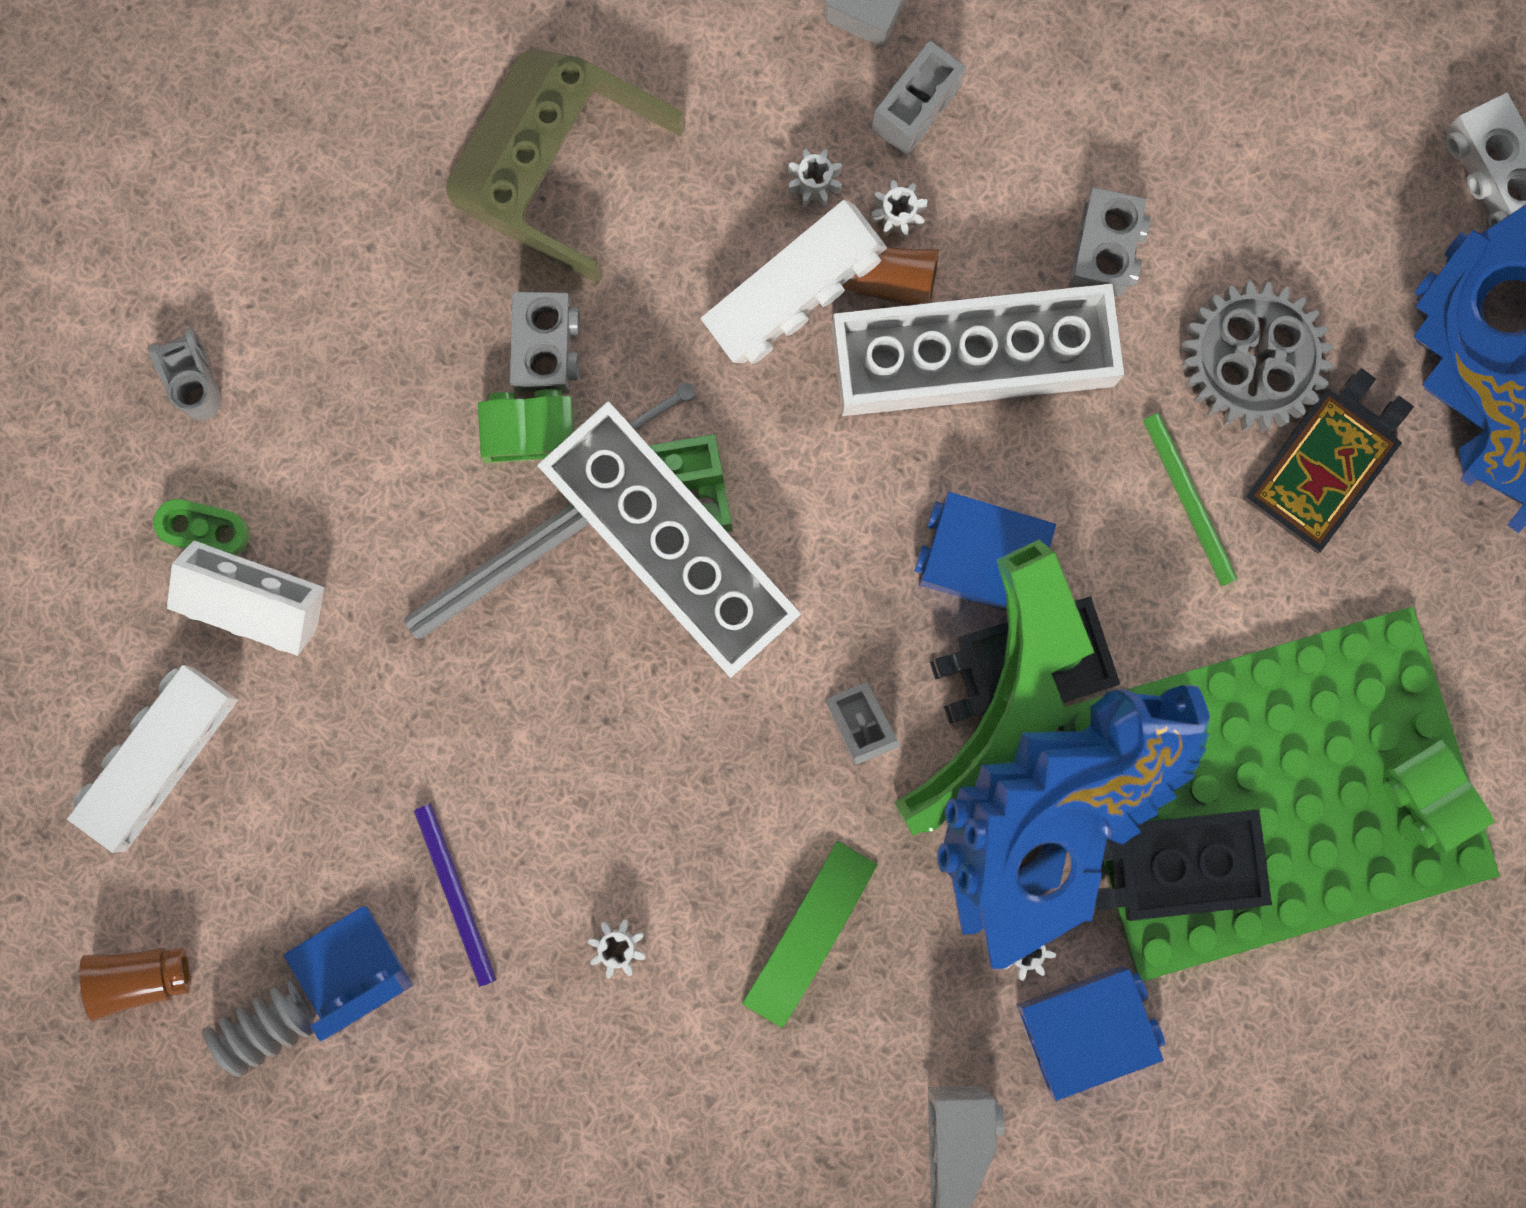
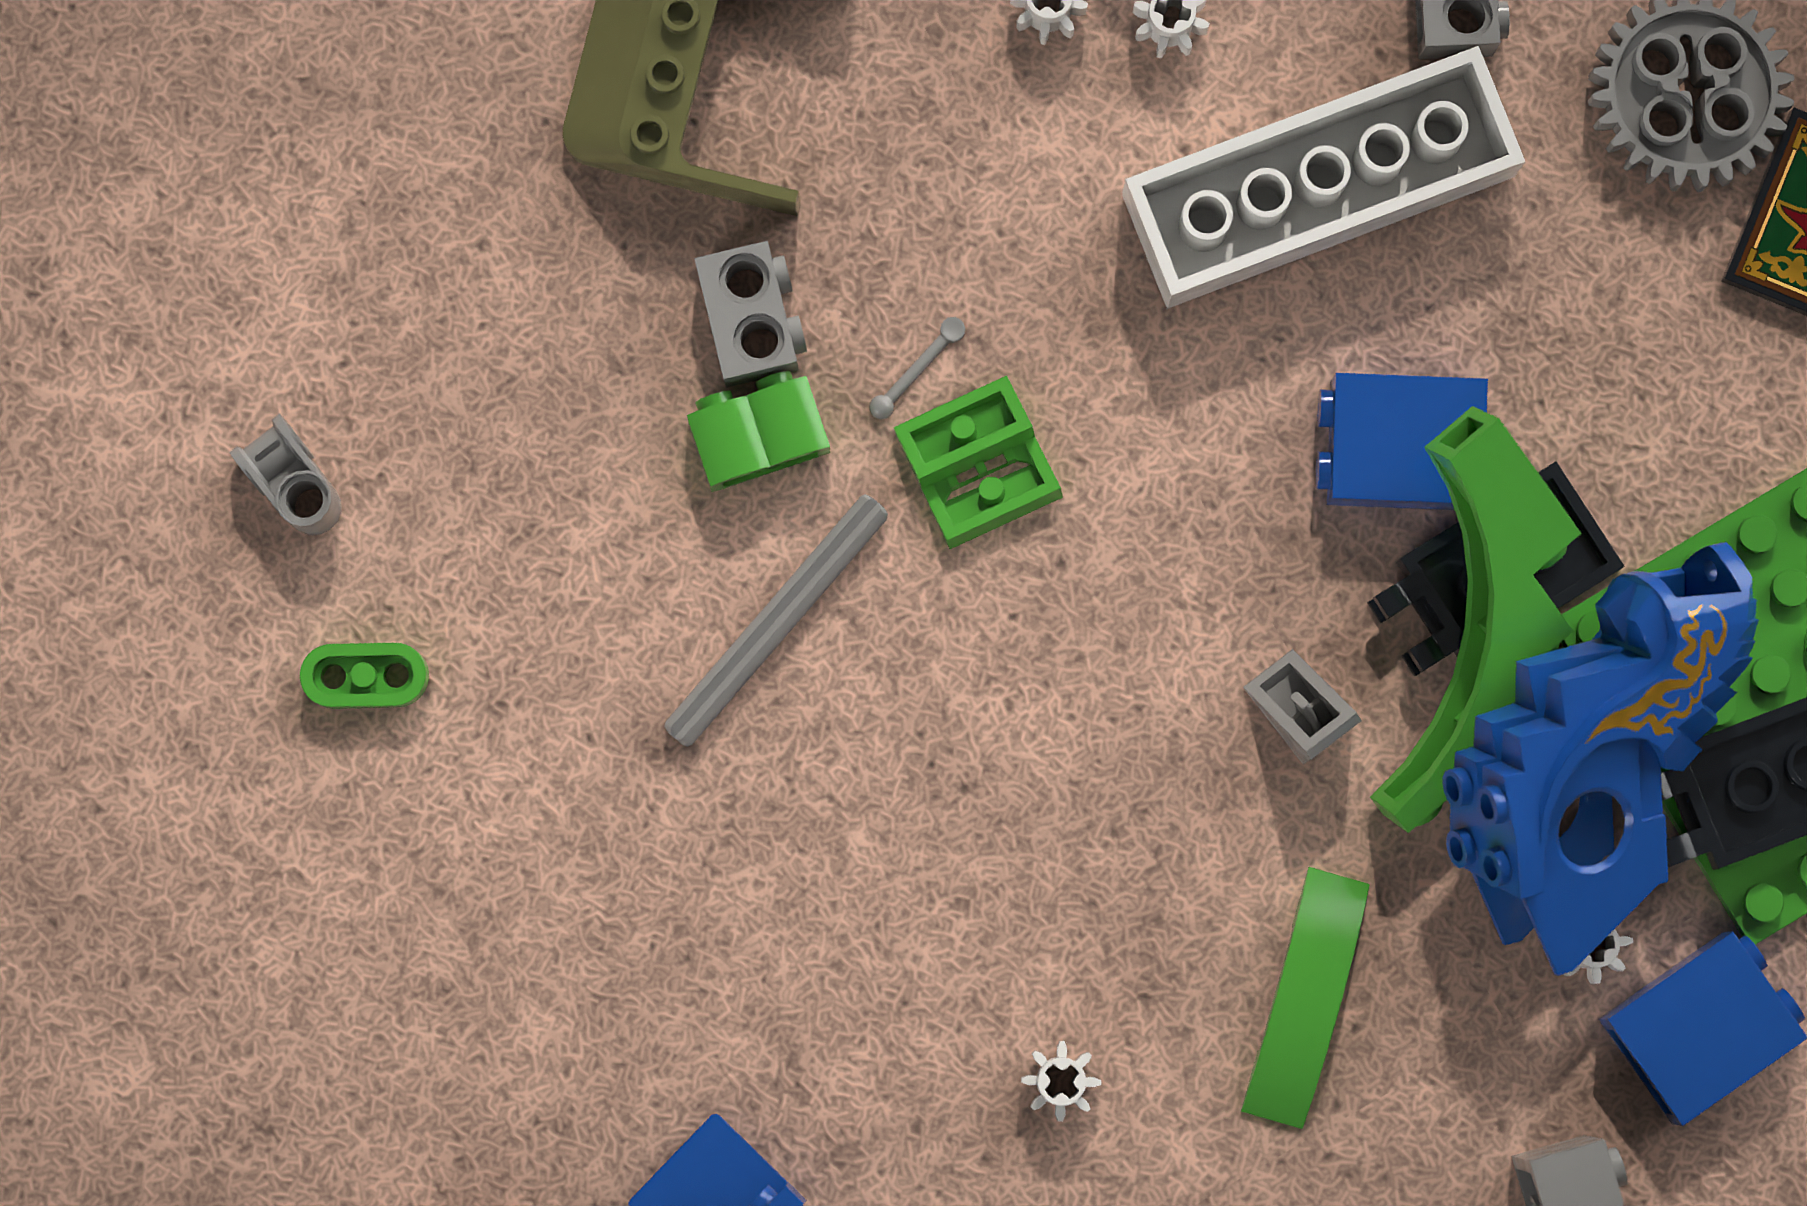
camera: 10 degrees left, 0 degrees up
(151, 759) = (384, 994): white brick -> none
(244, 597) = (451, 751): white brick -> none
(455, 895) = (828, 1068): dark purple bar -> none
(669, 539) = (991, 530): white brick -> none
(794, 283) = (1062, 151): white brick -> none
(900, 277) = (1182, 104): dark orange plant -> none
(1190, 499) = (1652, 300): bright green bar -> none

